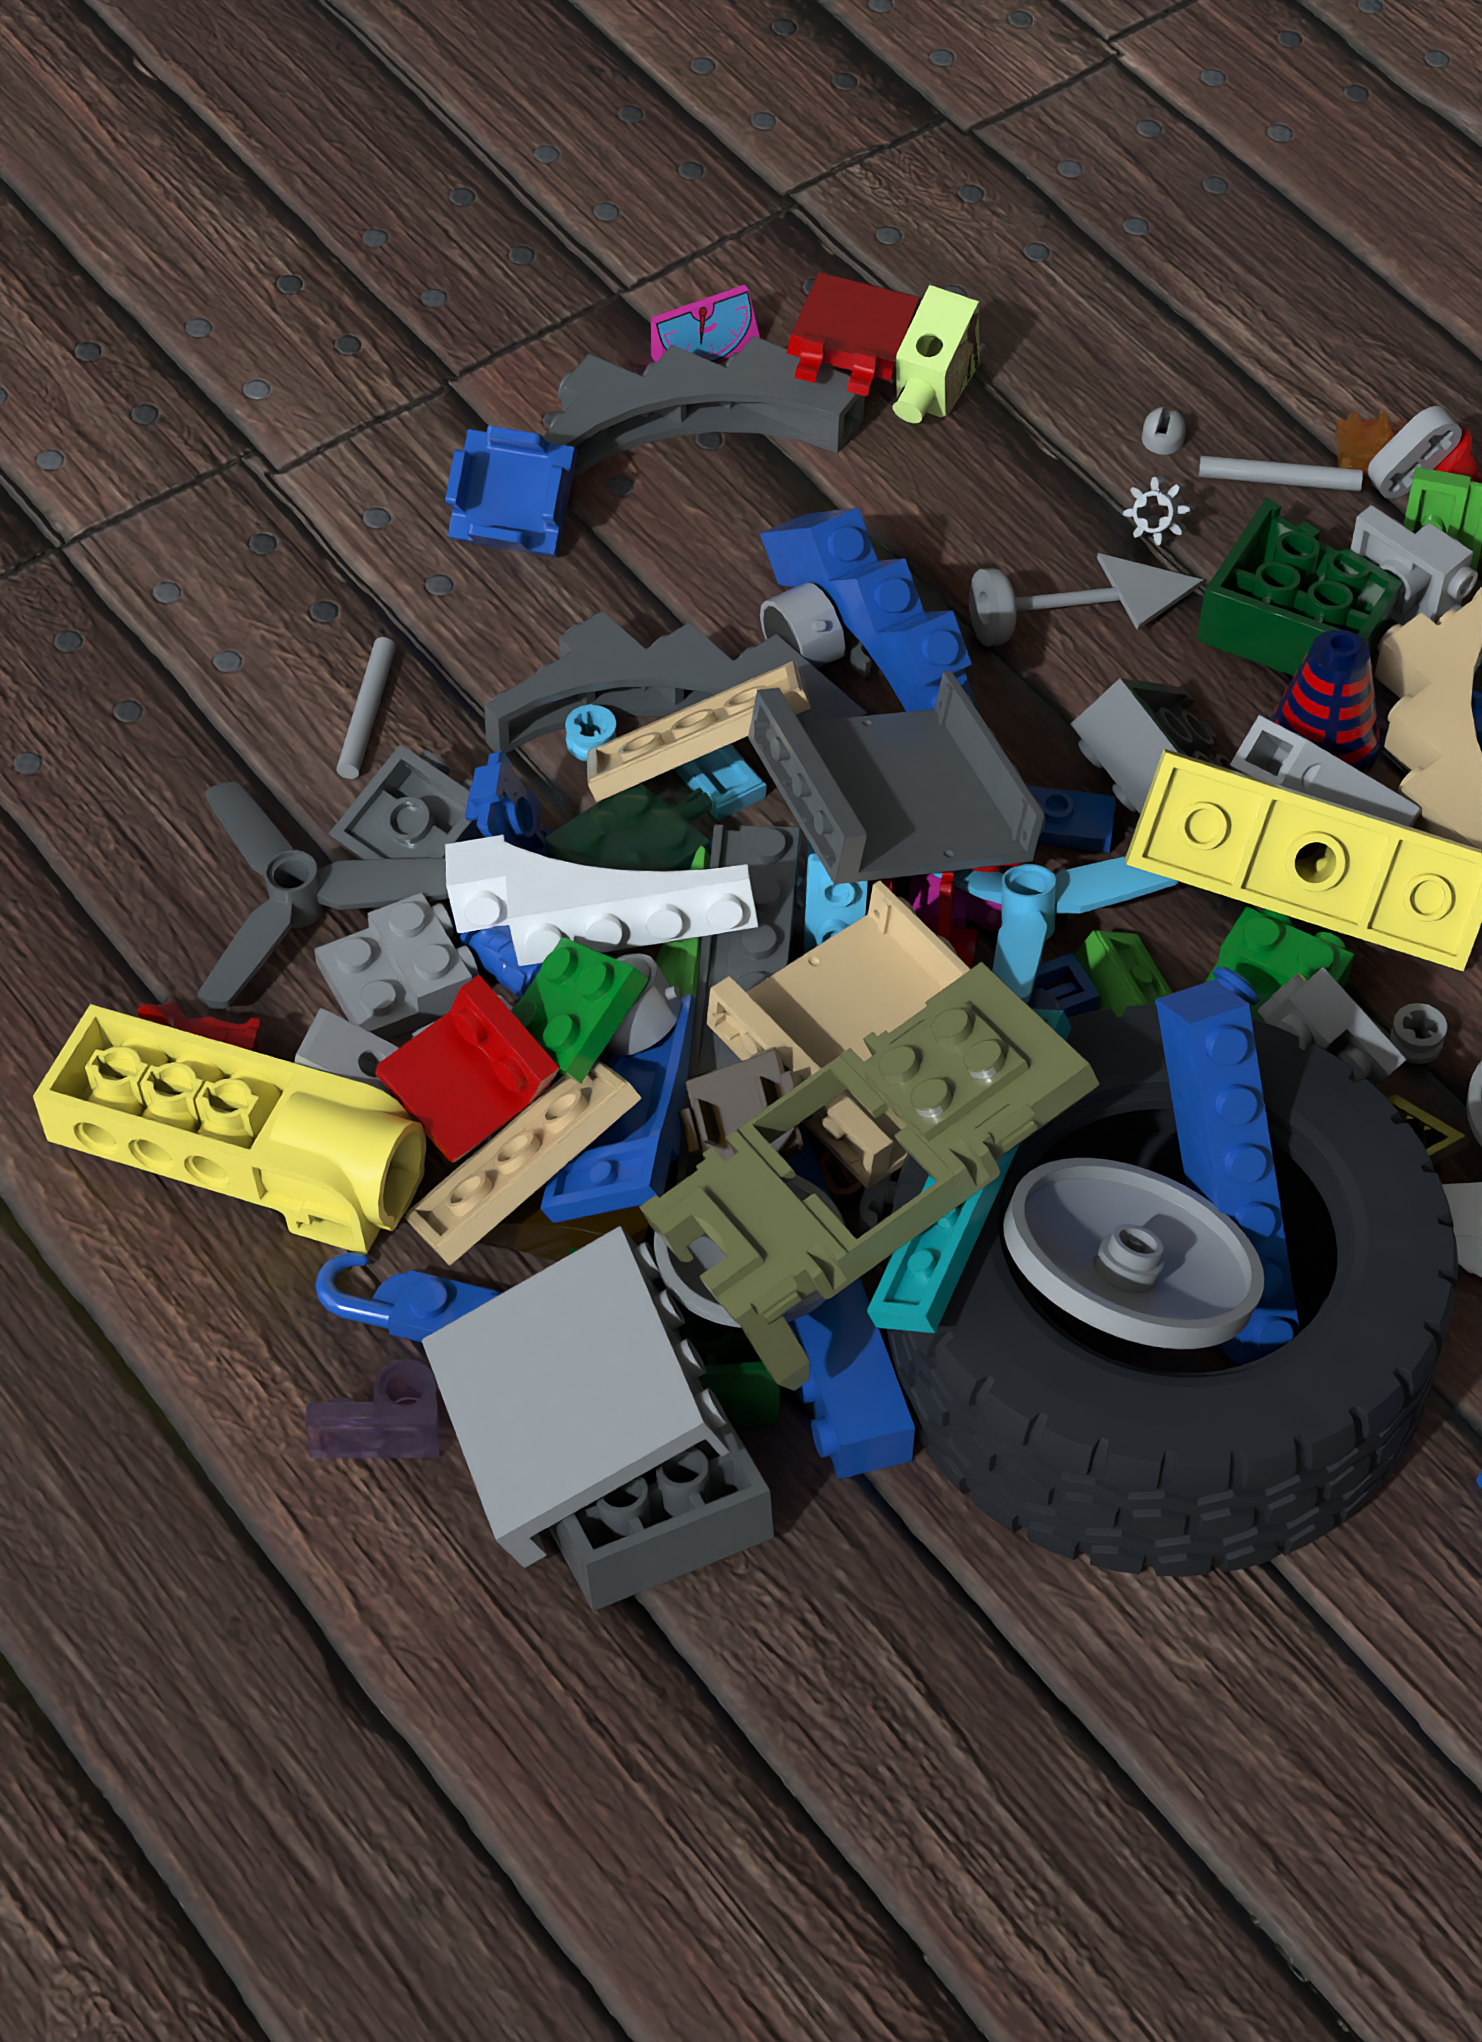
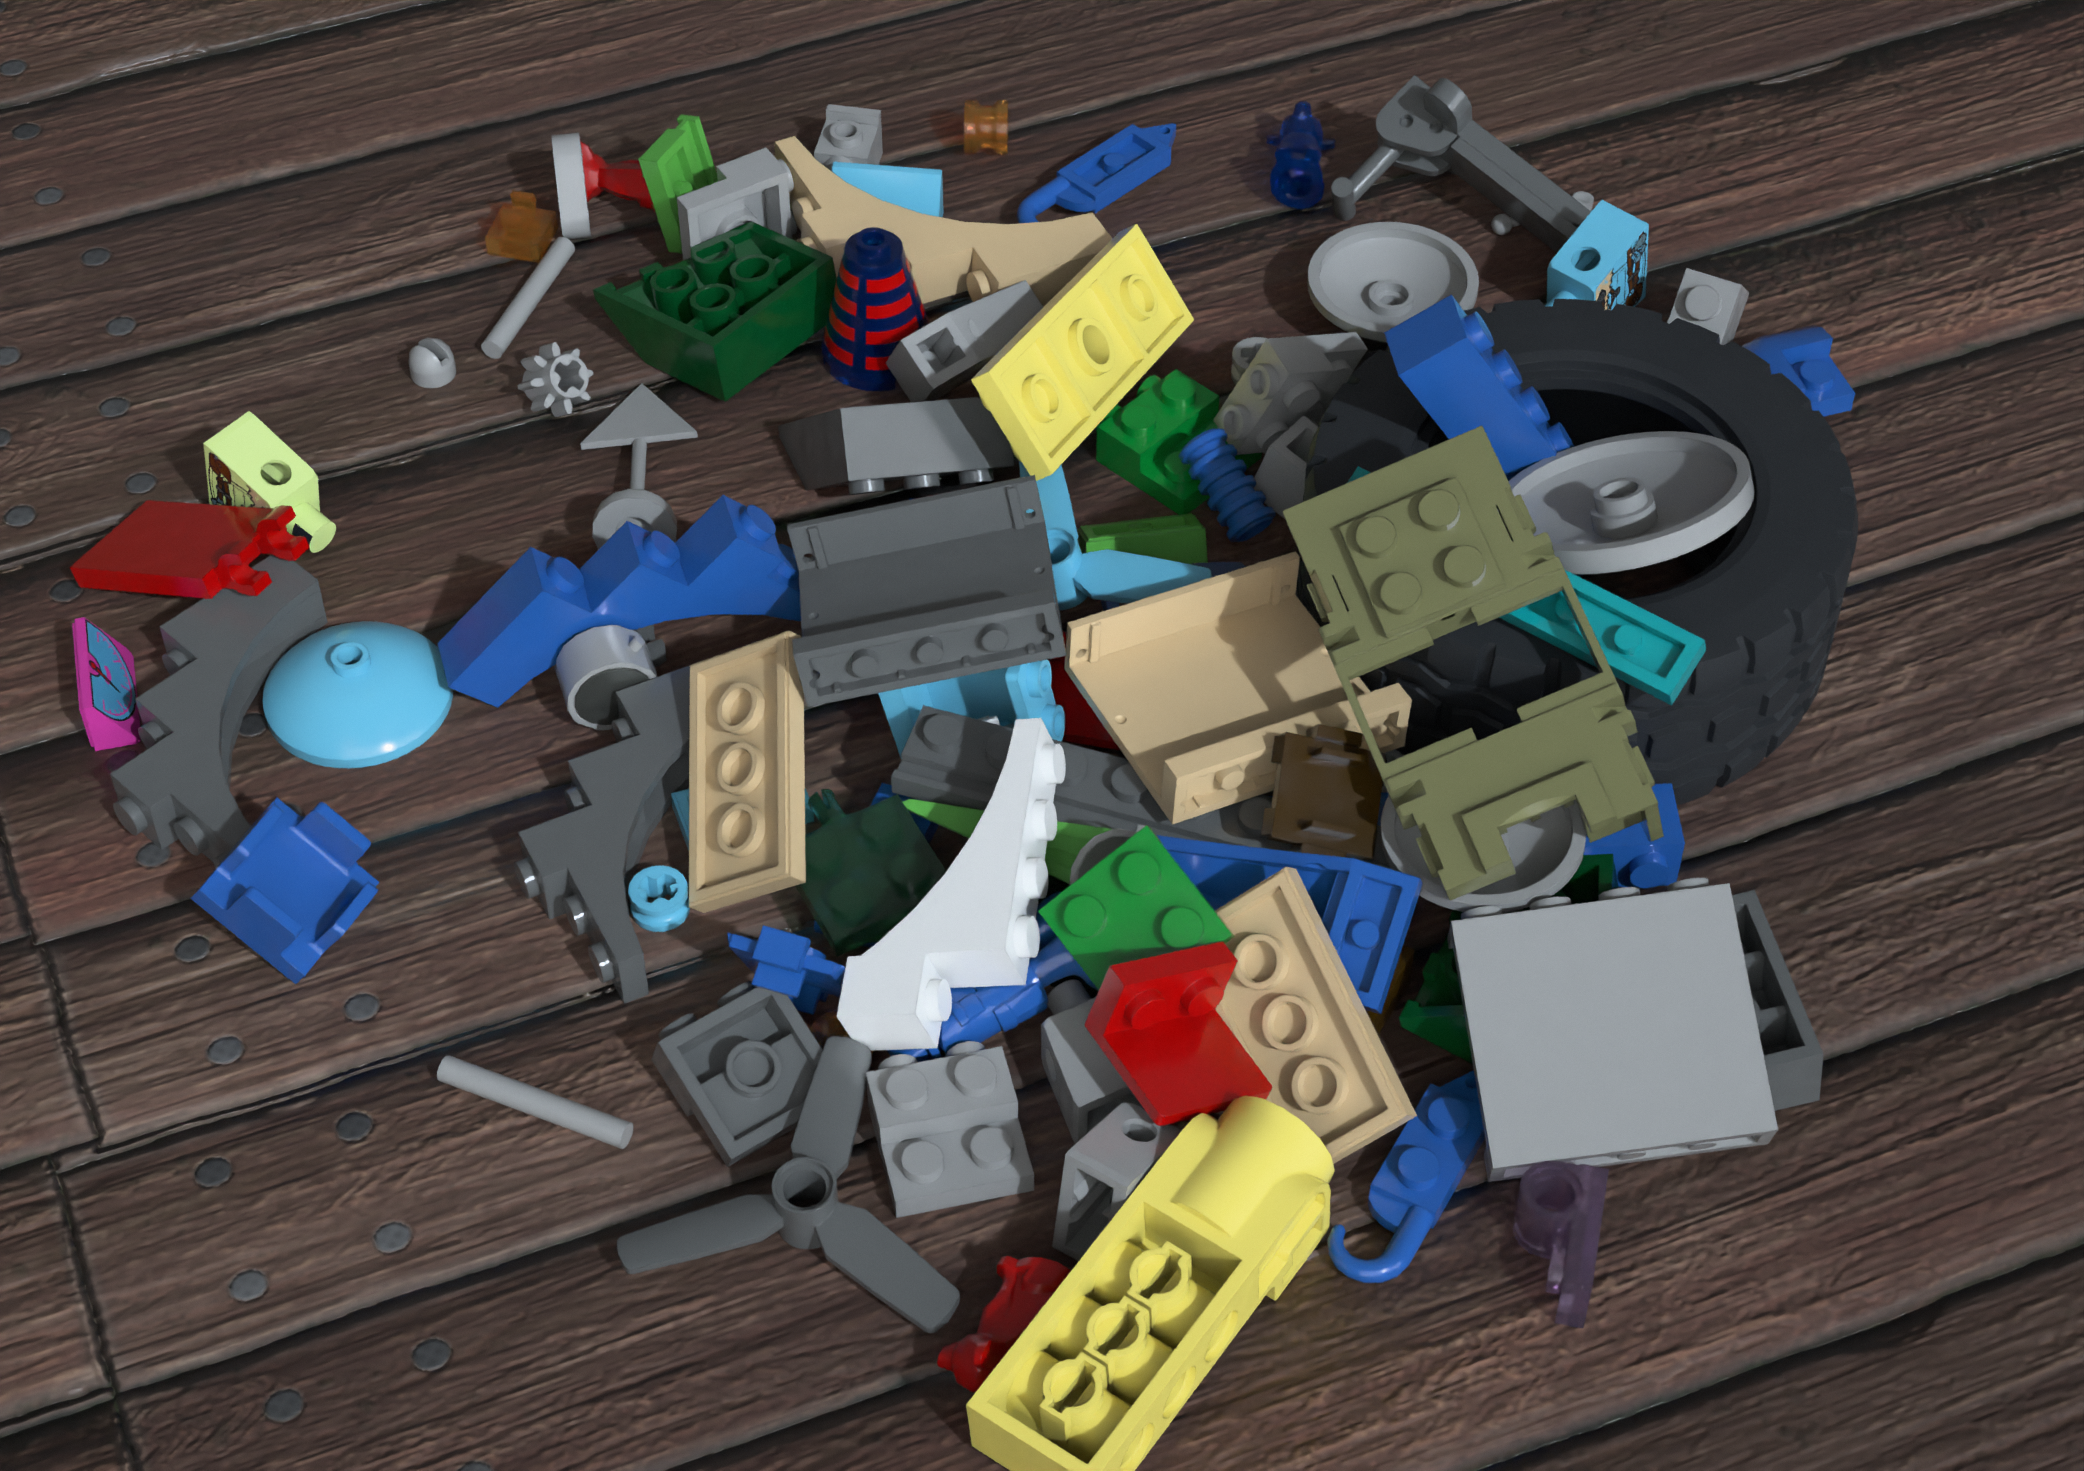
camera: 75 degrees left, 5 degrees down
(754, 484) = (357, 695): none -> medium azure dish

